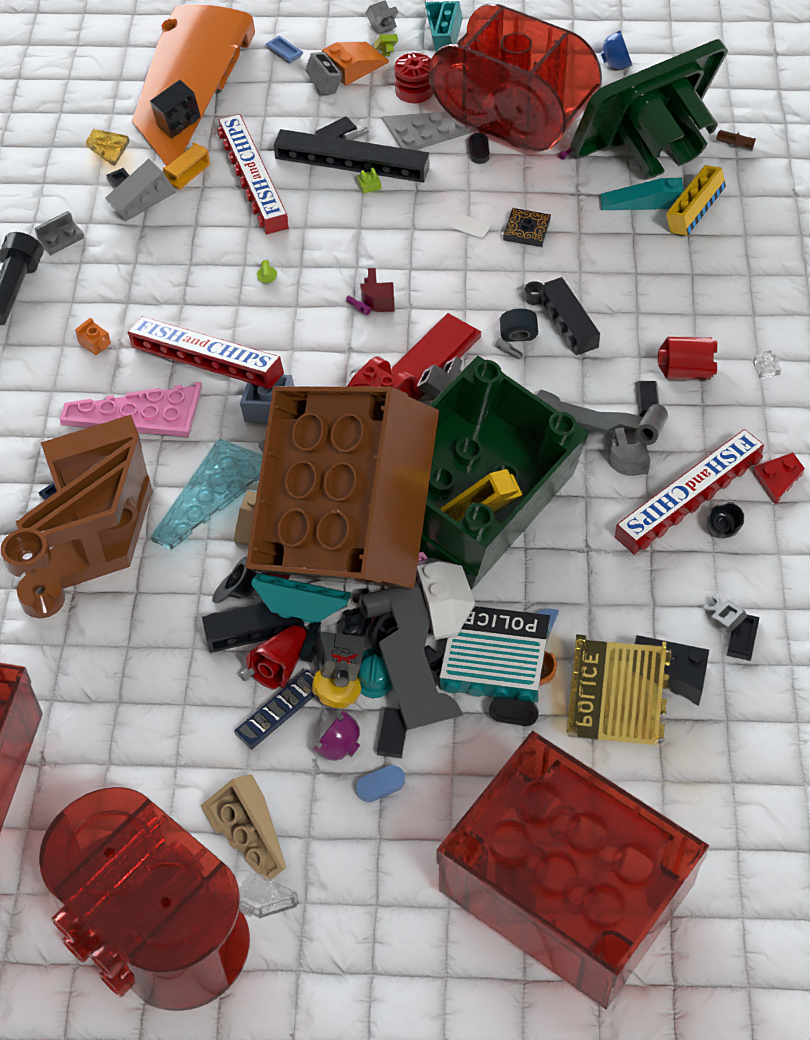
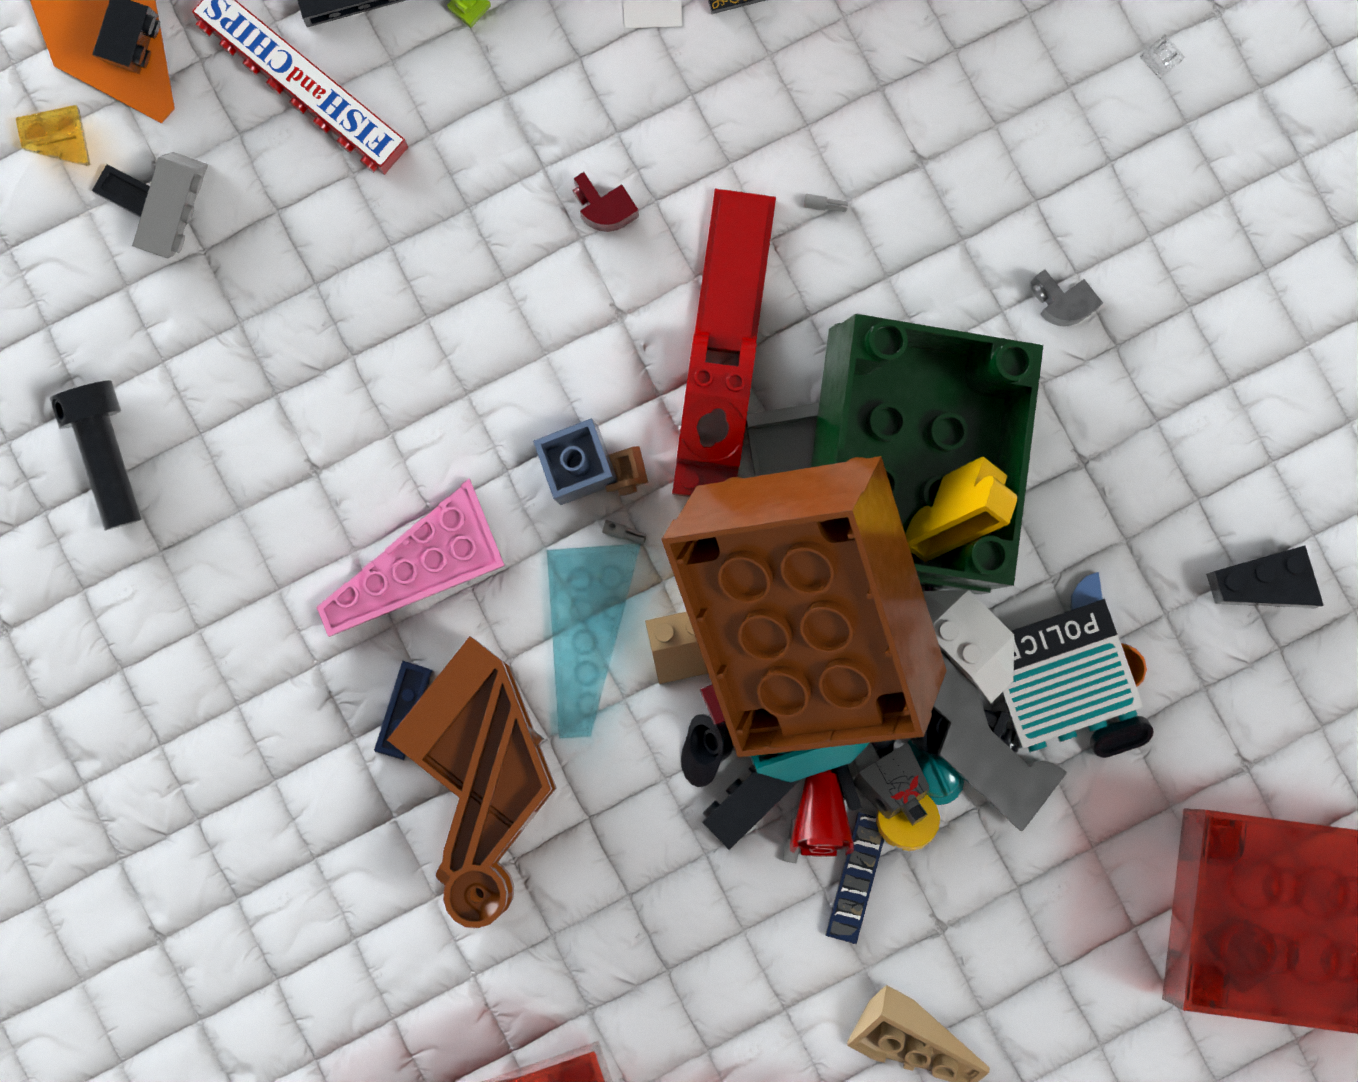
camera: 35 degrees left, 30 degrees up
(58, 233) = (102, 332): flat silver bracket -> none
(92, 337) = (264, 485): orange brick -> none
(187, 166) = (198, 115): light orange window -> none
(206, 352) = (453, 438): brick -> none
(267, 273) = (434, 248): lime plate -> none
(340, 739) = (951, 884): magenta cylinder -> none
(360, 306) = (589, 235): magenta pin -> none
(380, 783) = (1024, 905): medium blue tile -> none
(392, 734) = (1001, 838): black tile -> none
(435, 379) = (782, 314): flat silver brick -> none
(518, 325) = (823, 166): black wheel -> none
(566, 313) = (870, 108): black hinge -> none
(618, 691) = (1230, 653): clear yellow panel -> none
(646, 428) = (1006, 270): dark grey door -> none
(647, 395) = (1040, 191): black tile -> none
(687, 358) = (1069, 110): red cylinder -> none
(689, 492) = (1167, 314): brick -> none
(725, 520) = (1231, 340): black hair -> none
(726, 614) = (1295, 476): plate -> none
(743, 638) = (1321, 489): black tile -> none
(779, 475) = (1257, 228): red wing -> none

